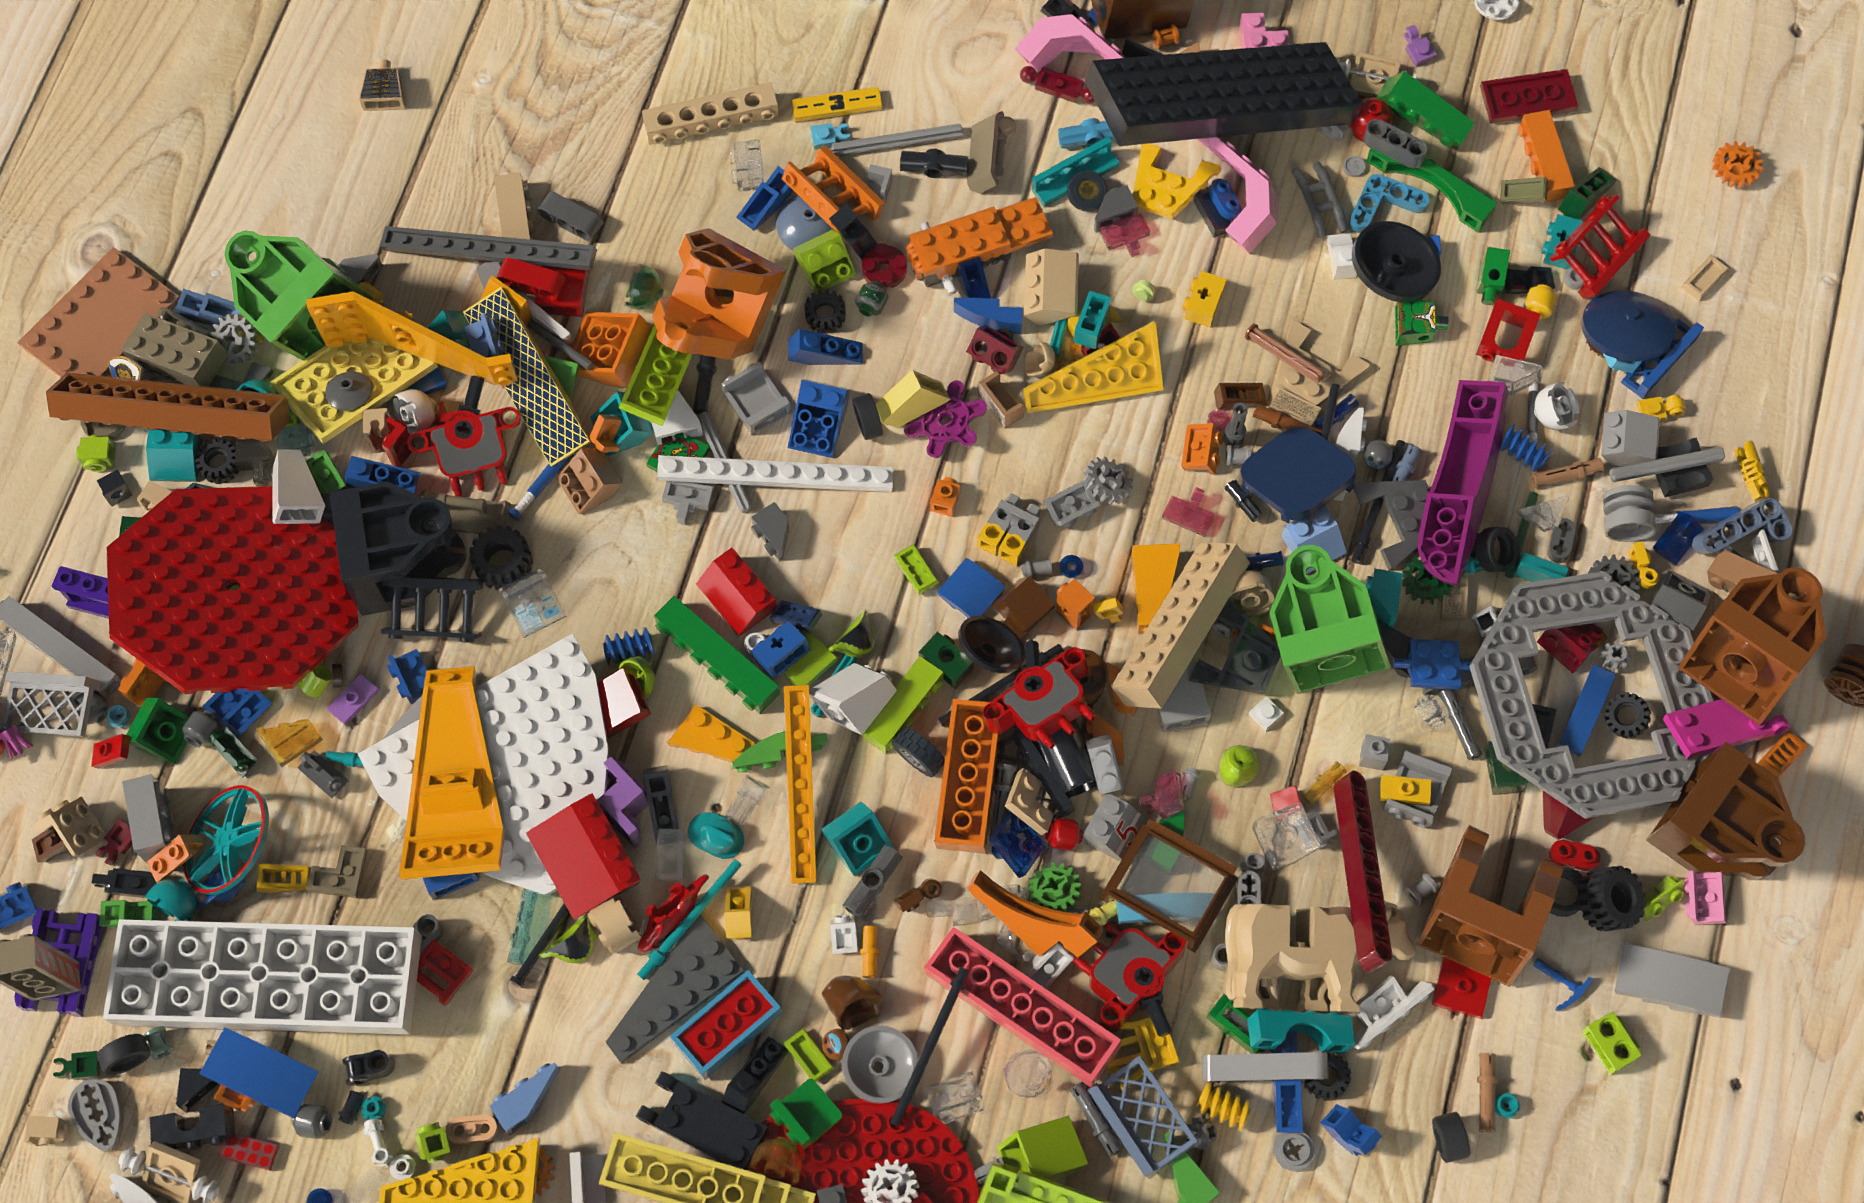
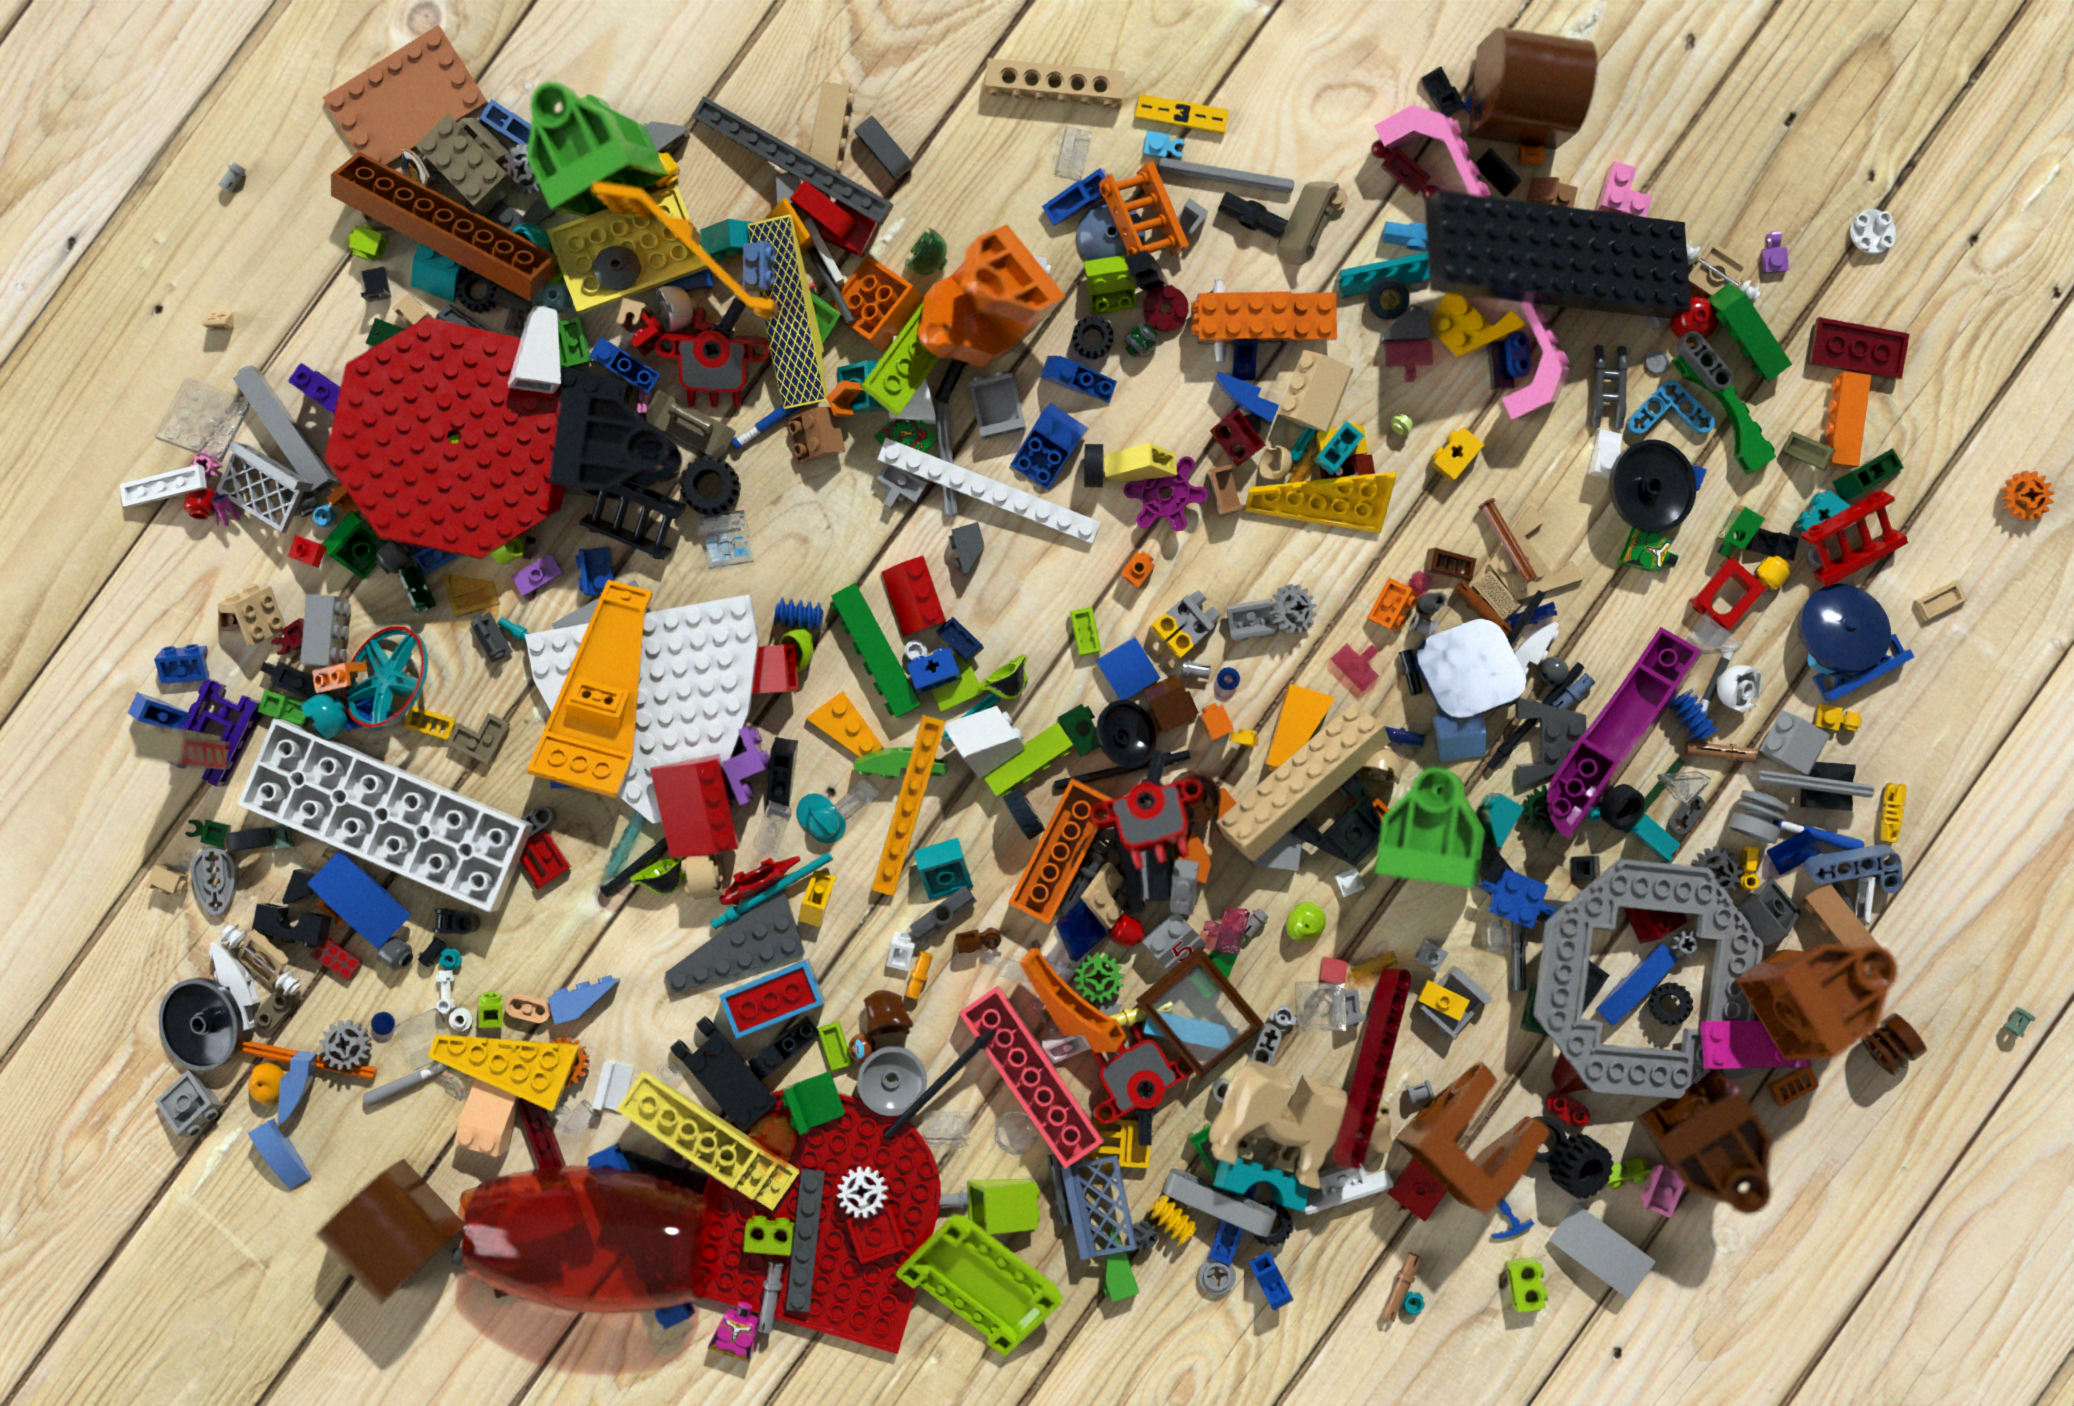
camera: 20 degrees right, 20 degrees up
(1451, 1137) = (1353, 1315): black tyre -> none

